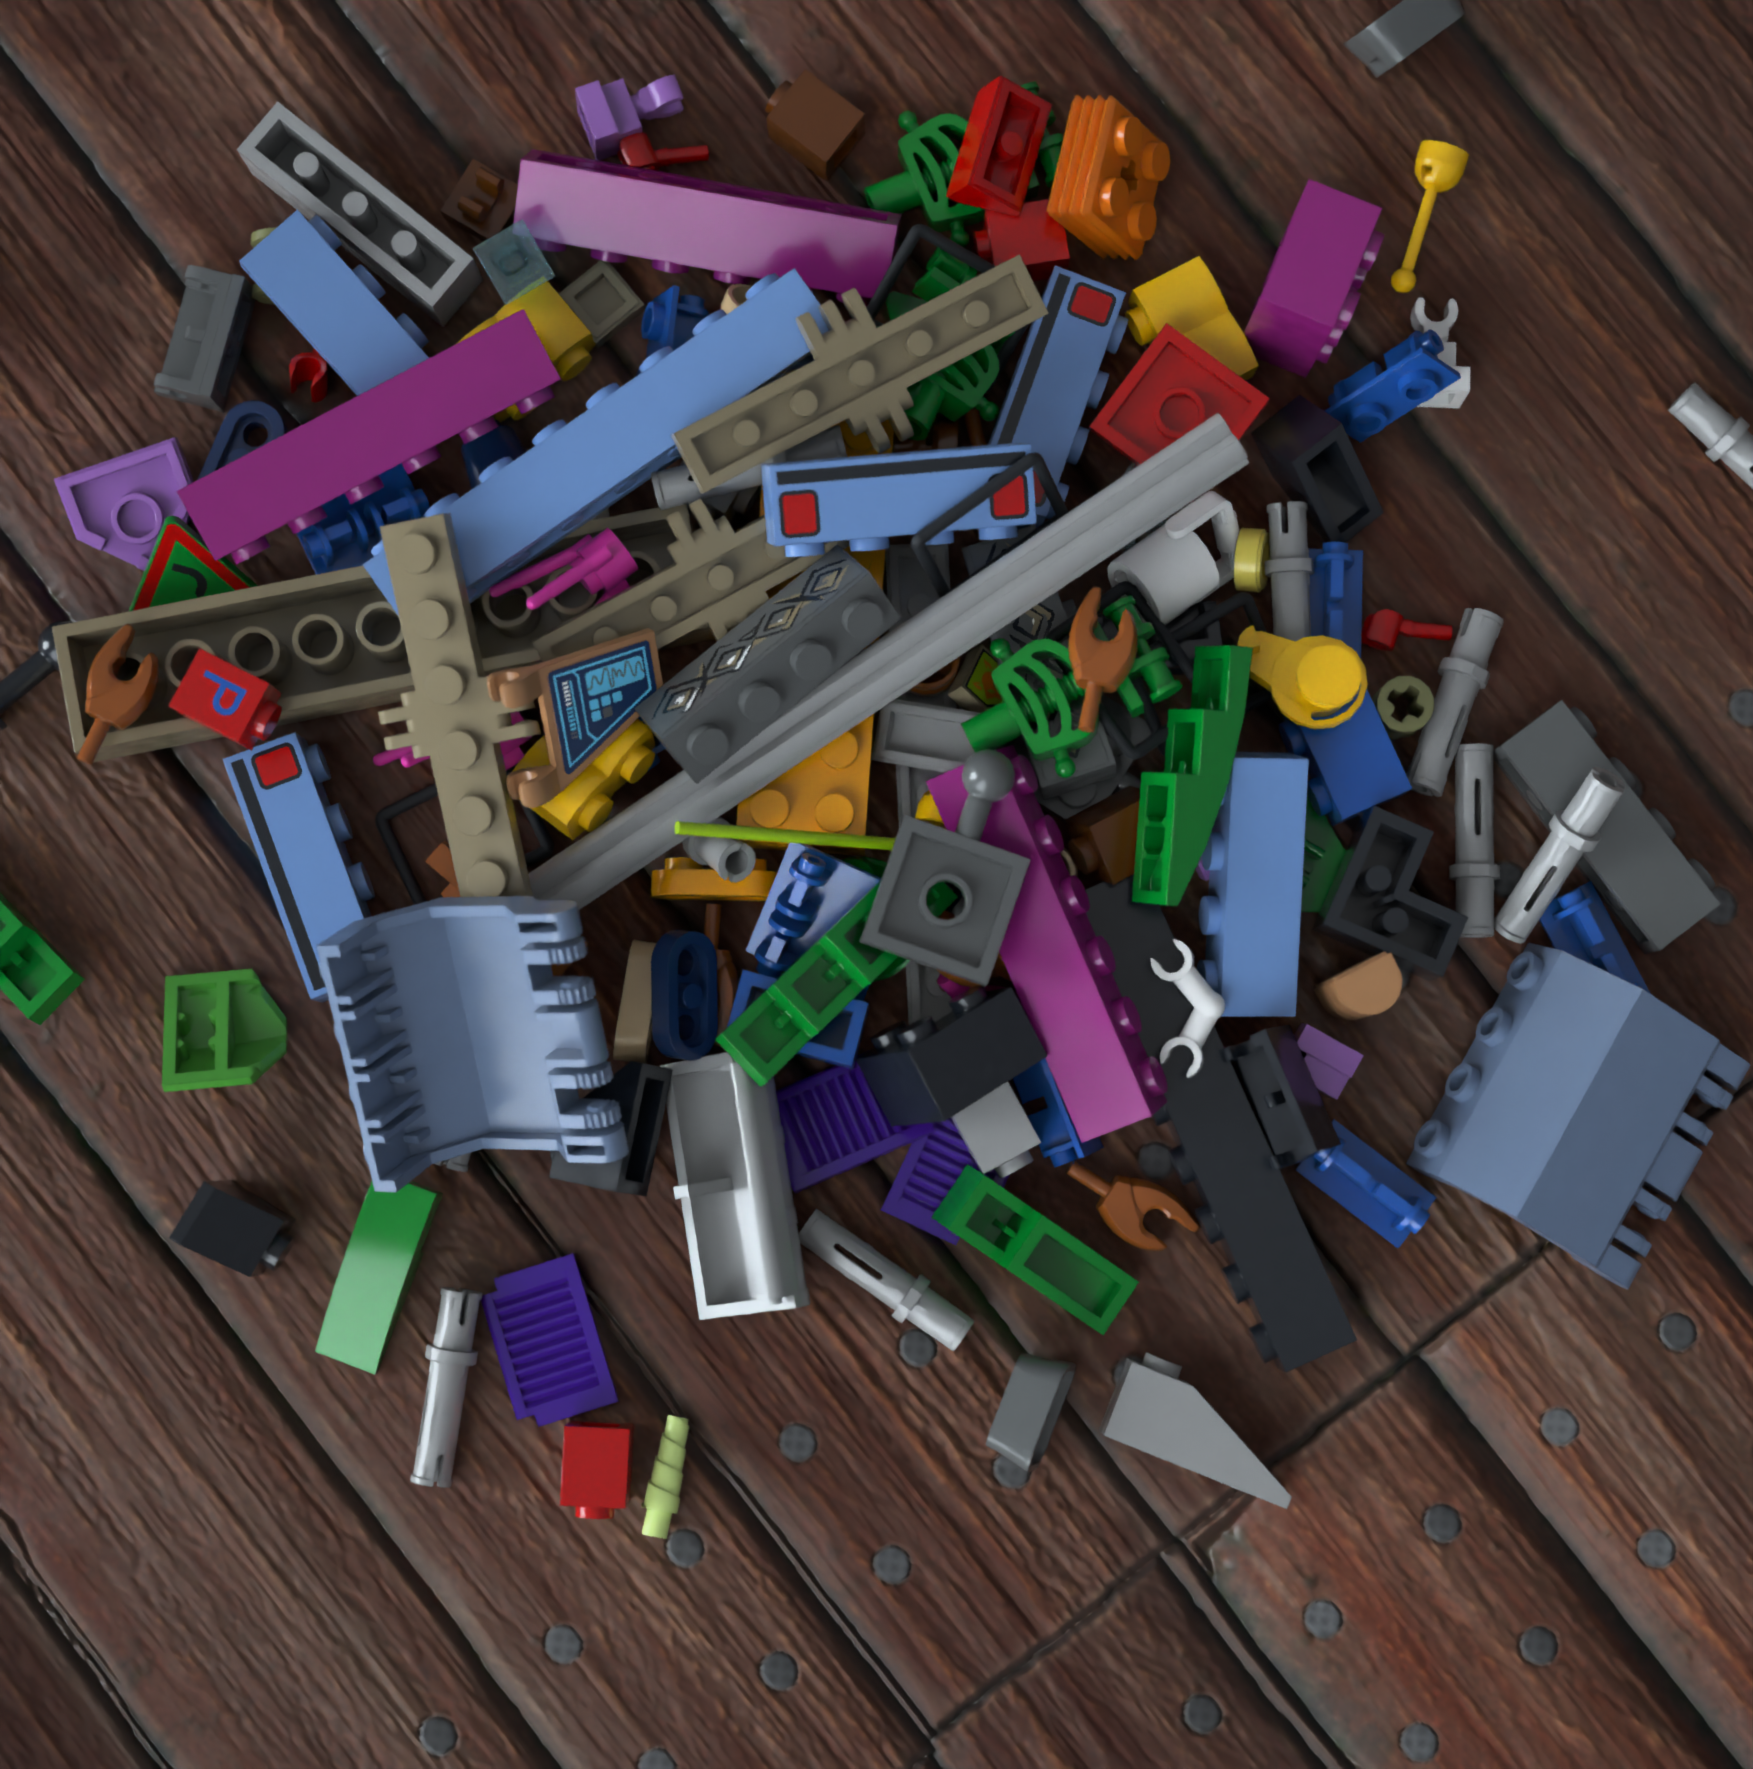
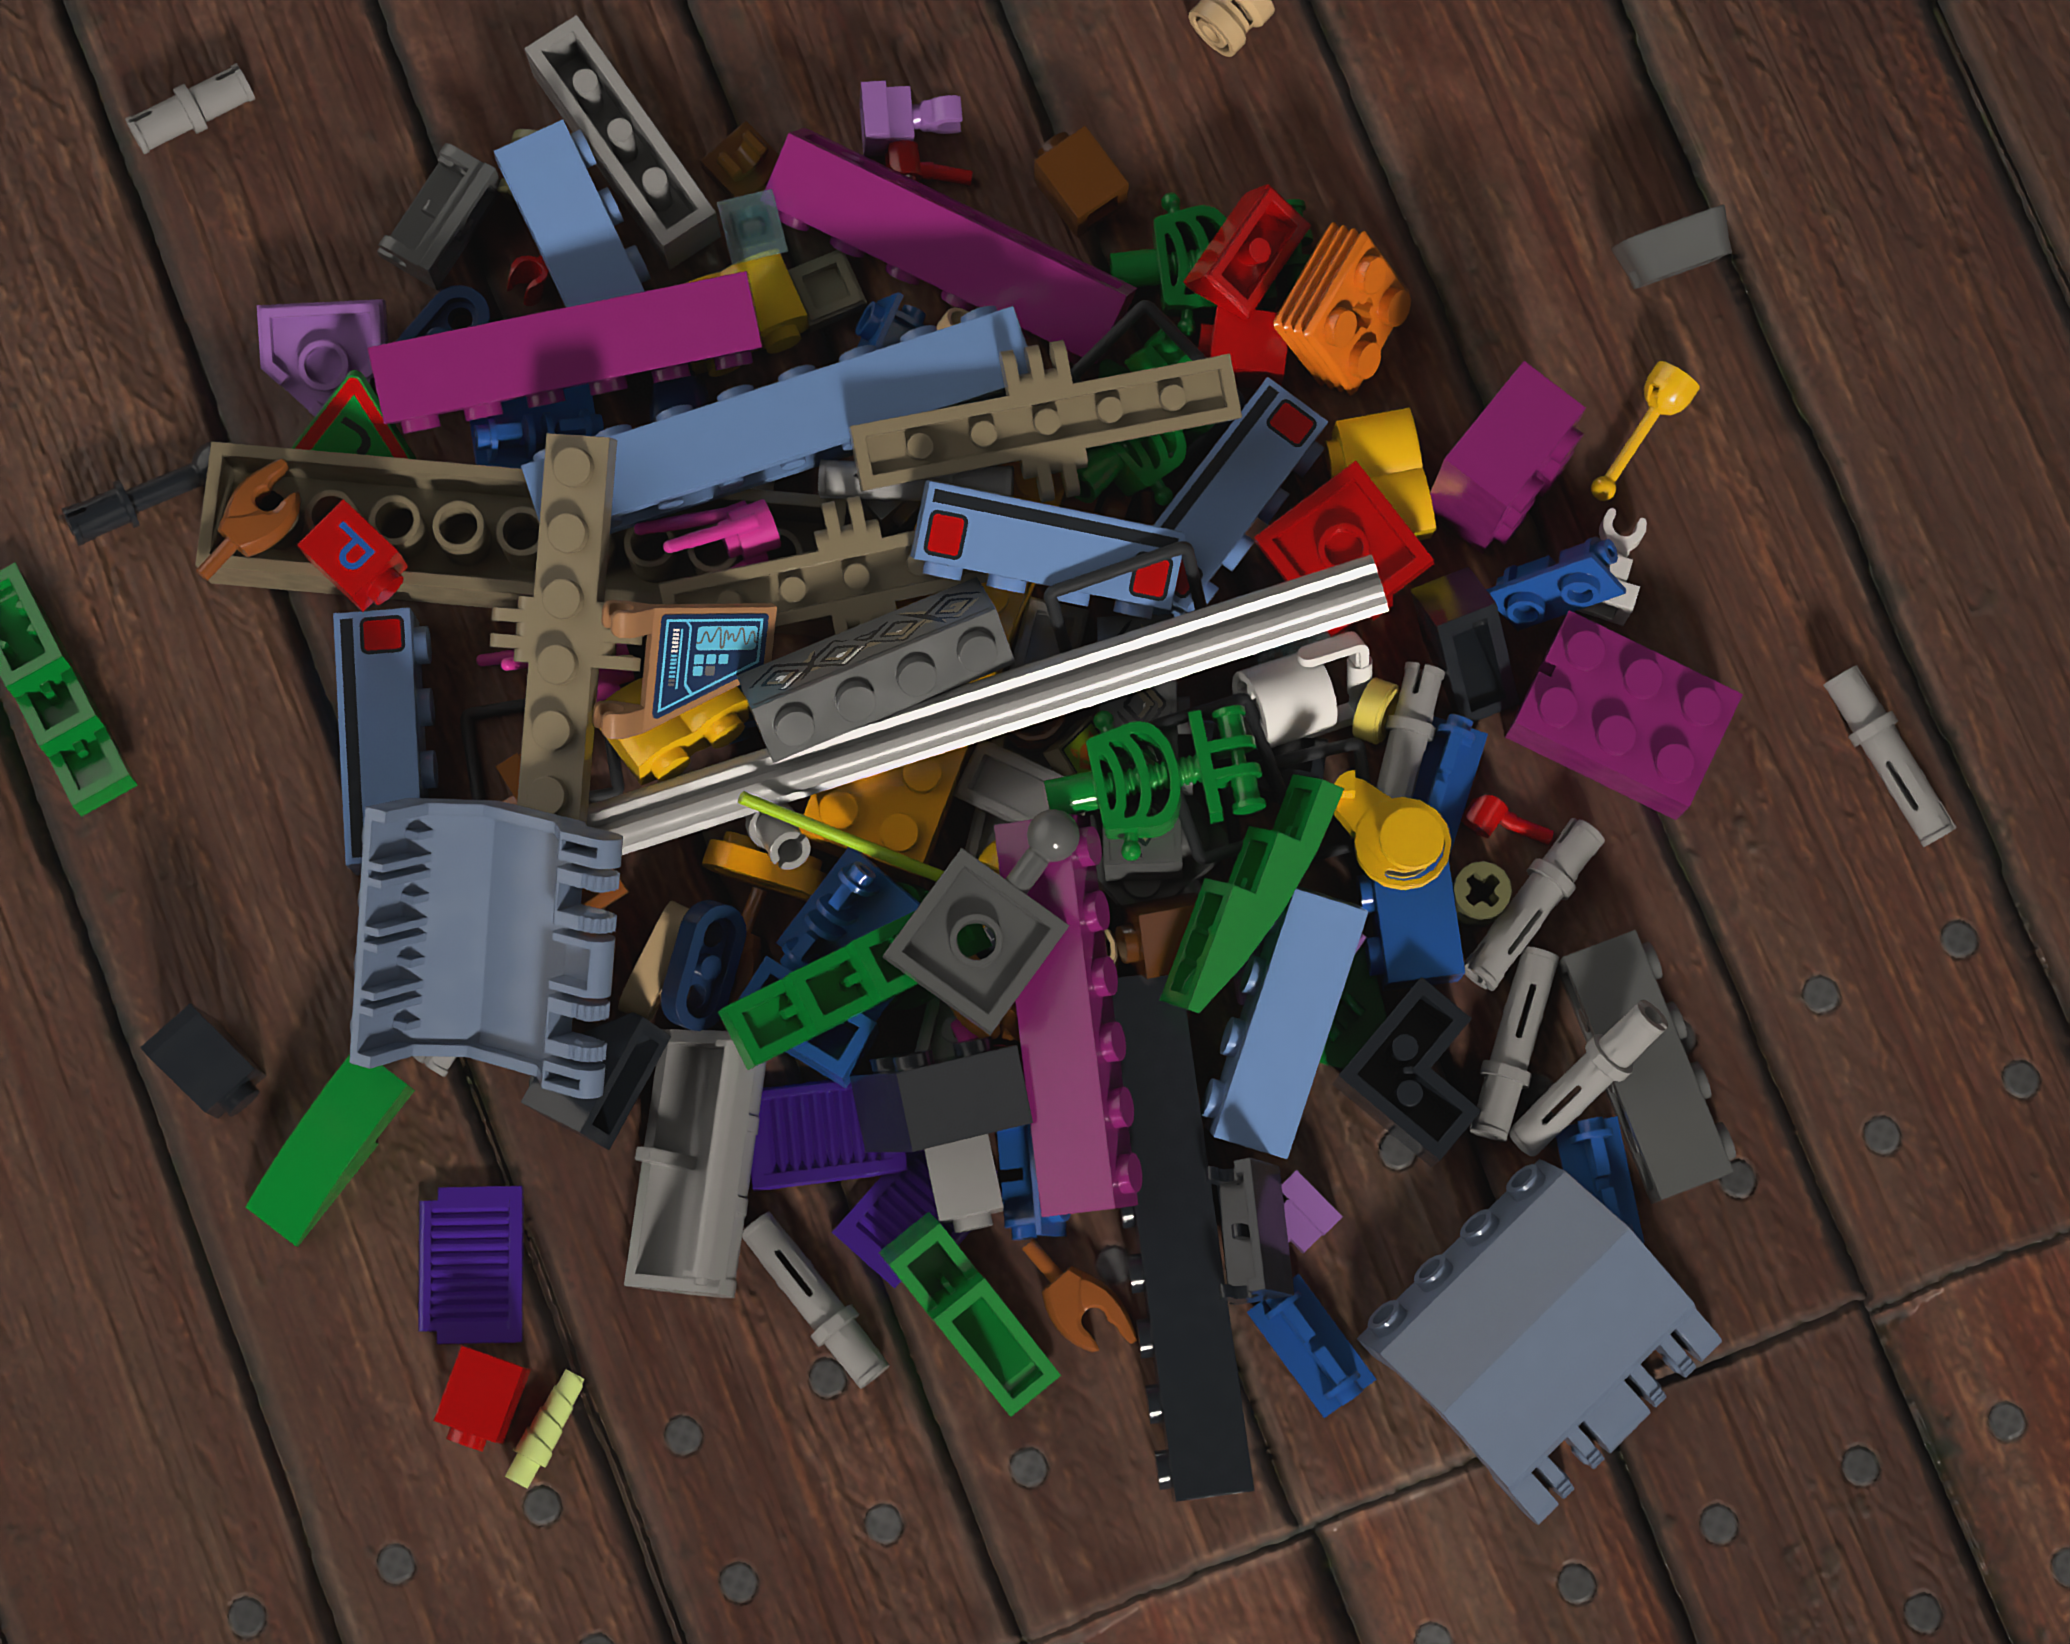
camera: 15 degrees right, 5 degrees down
(219, 1030) = (250, 871): bright green slope -> none
(446, 1386) = (371, 1253): light grey pin -> none
(1030, 1409) = (918, 1466): dark grey piece -> none
(1097, 663) = (1191, 760): dark orange hand -> none
(1175, 1423) = (1056, 1523): light grey slope -> none
(1207, 1008) = (1202, 1125): white arm -> none
(1362, 988) = (1357, 1150): medium nougat brick -> none
(1489, 495) = (1624, 715): none -> magenta piece

